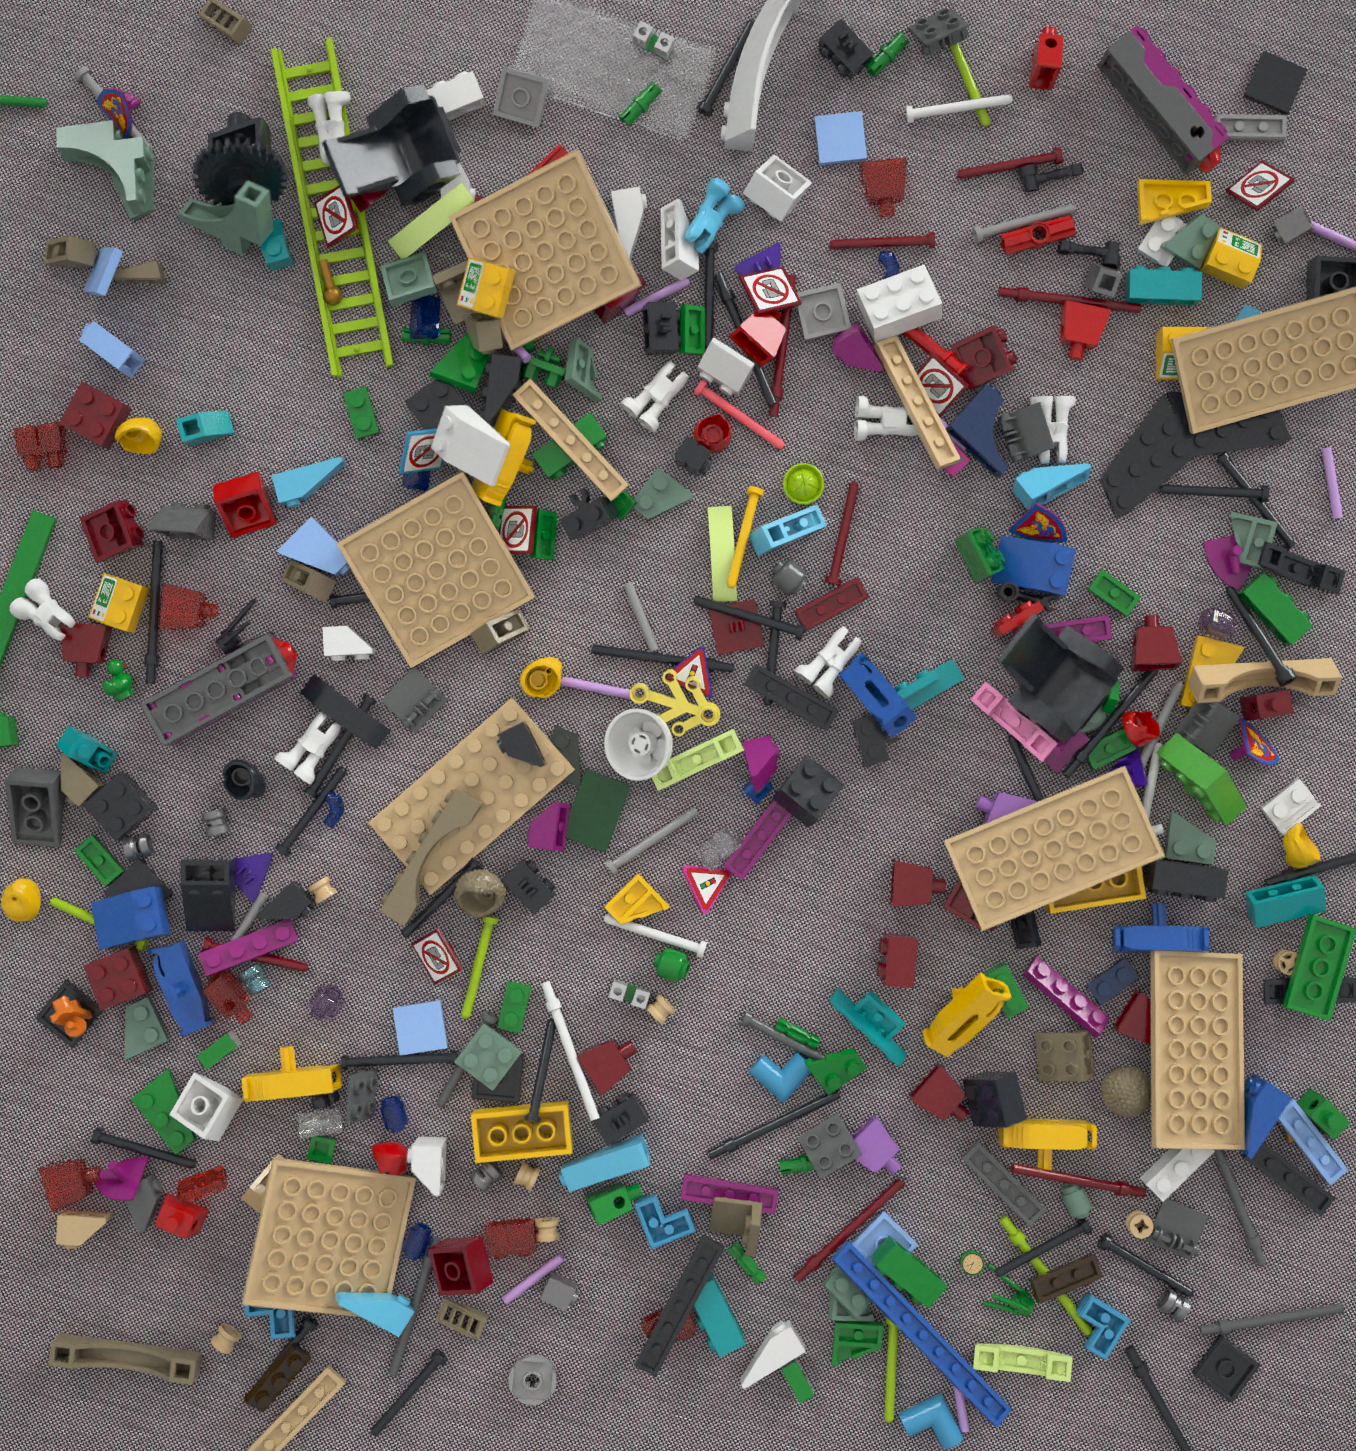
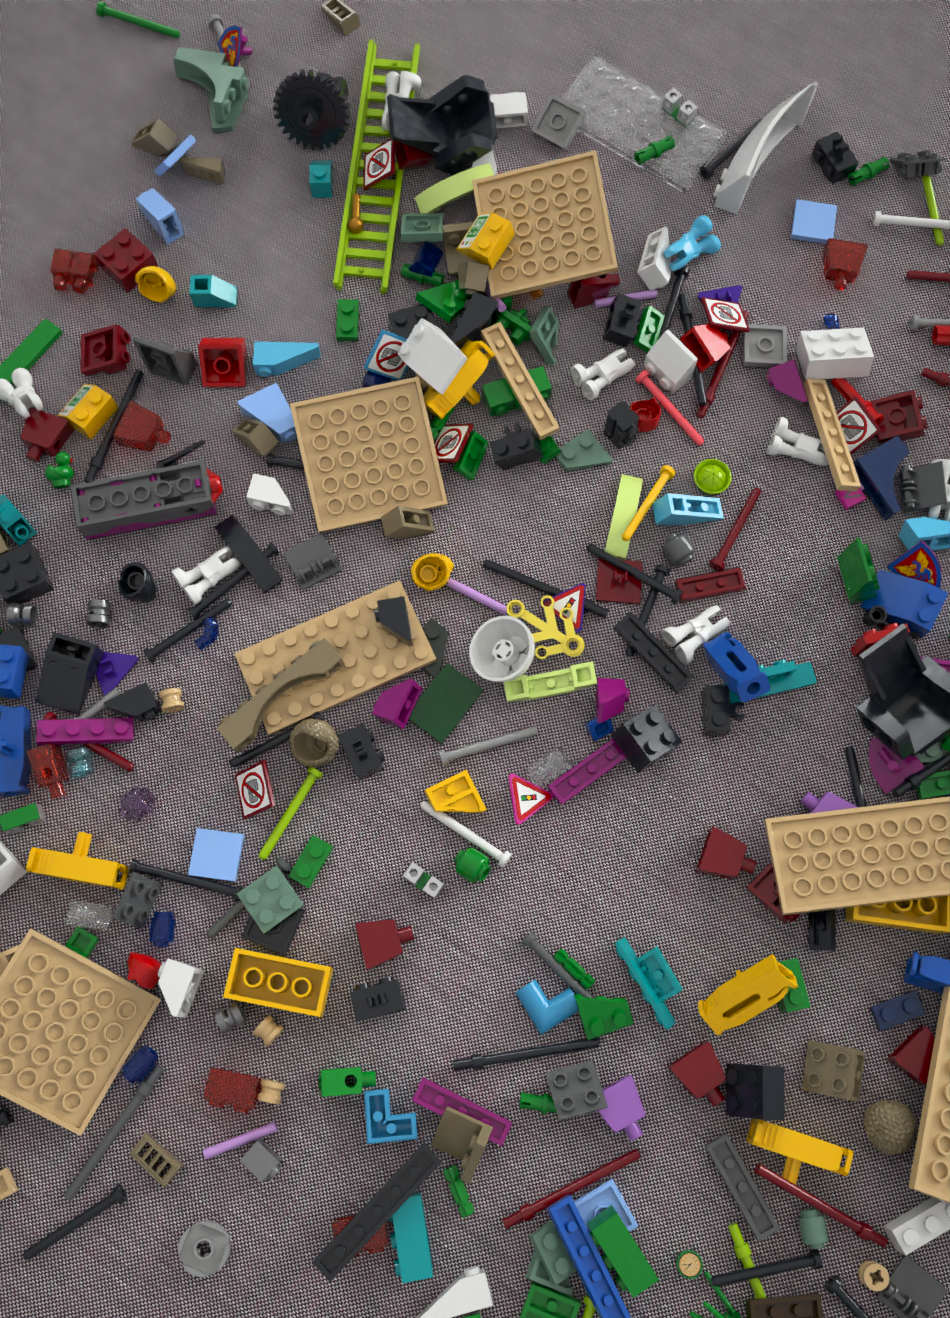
camera: 15 degrees right, 15 degrees down
(237, 223) = (302, 145): sand green arch -> none
(323, 1100) = (102, 894): black tile -> none
(381, 1309) = (78, 1120): medium azure slope -> none
(460, 1266) = (173, 1100): dark red brick -> none
(532, 1117) = (293, 967): black bar -> none
(553, 1005) = (348, 872): white bar -> none
(605, 1163) = (348, 1040): medium azure slope -> none
(629, 214) = (622, 224): white slope -> none
(641, 617) = (536, 549): light grey bar -> none
(660, 1009) = (449, 904): tan wheel -> none
(776, 187) = (750, 242): white slope -> none
(884, 242) = (839, 309): dark red bar -> none
(898, 960) = (692, 922): dark red brick -> none
(1025, 731) = (846, 721): bright pink slope -> none
(1066, 996) = (849, 1011): magenta plate -> none

